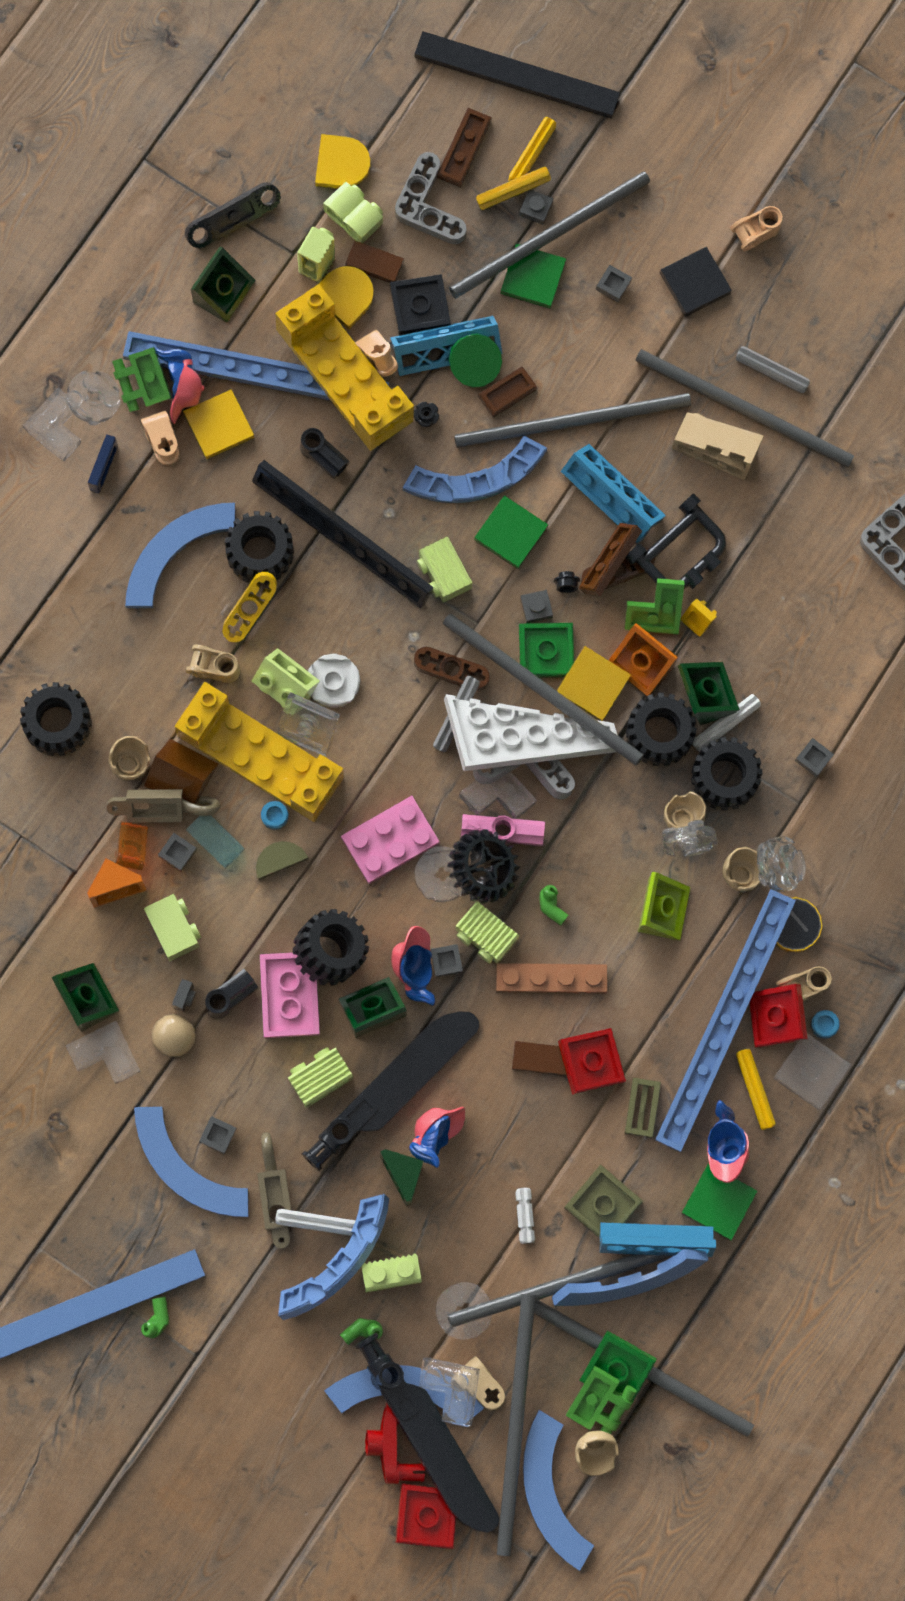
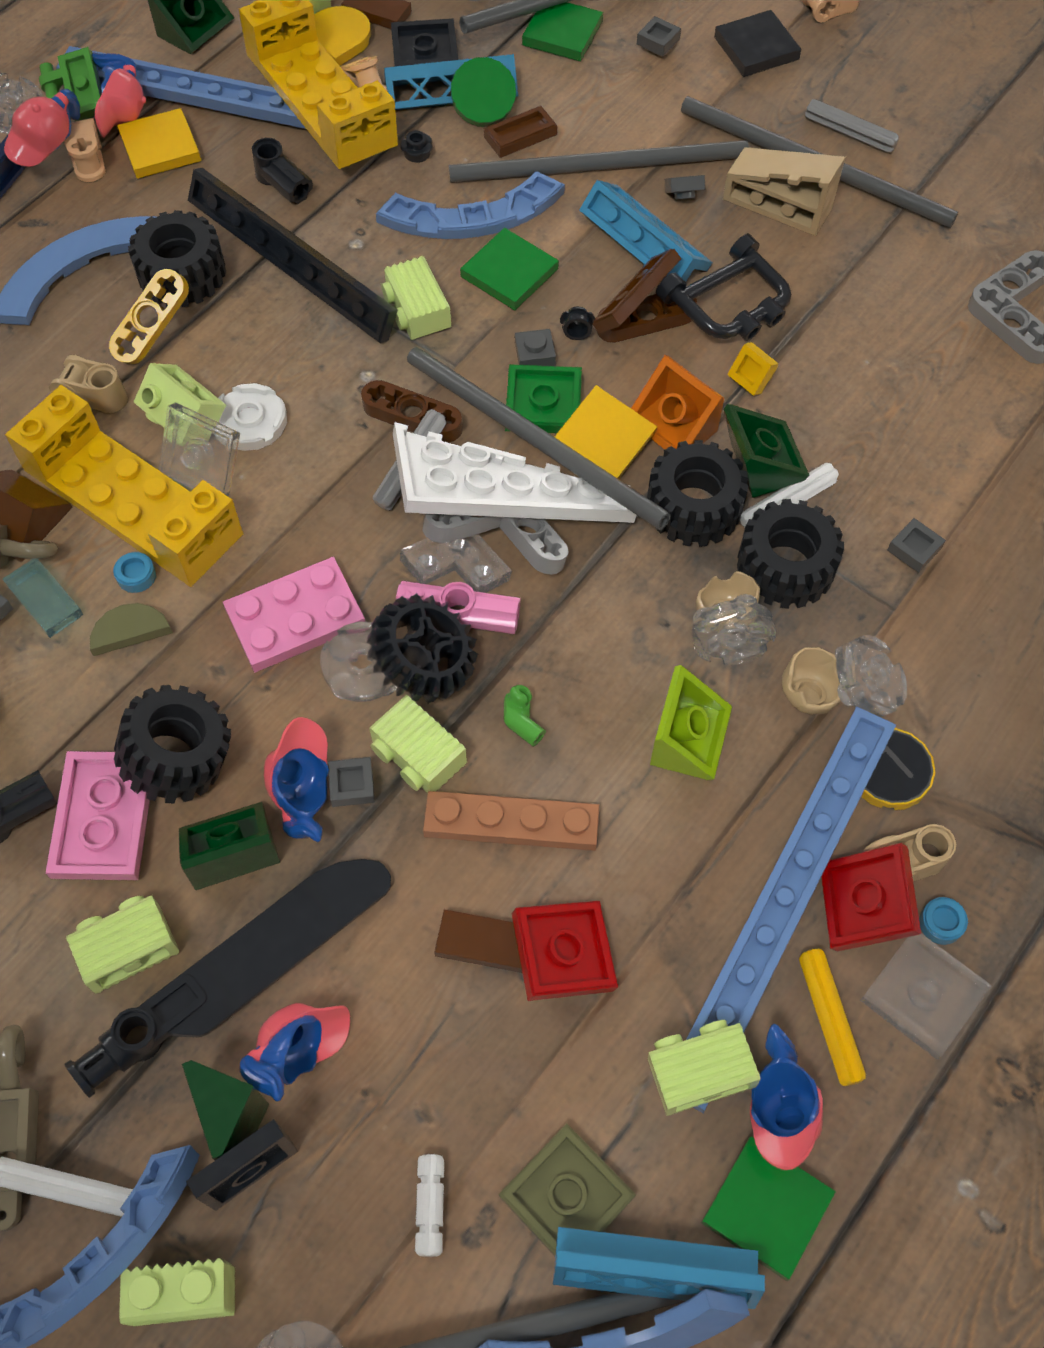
camera: 10 degrees right, 15 degrees down
(132, 436) = (41, 127): none -> coral hair
(419, 1203) = (242, 1166): none -> black tile
(638, 1131) = (635, 1072): olive tile -> none
(641, 444) = (685, 186): none -> dark grey plate
(663, 614) = (711, 348): bright green plate -> none
(678, 1128) = (702, 1067): none -> yellowish green brick

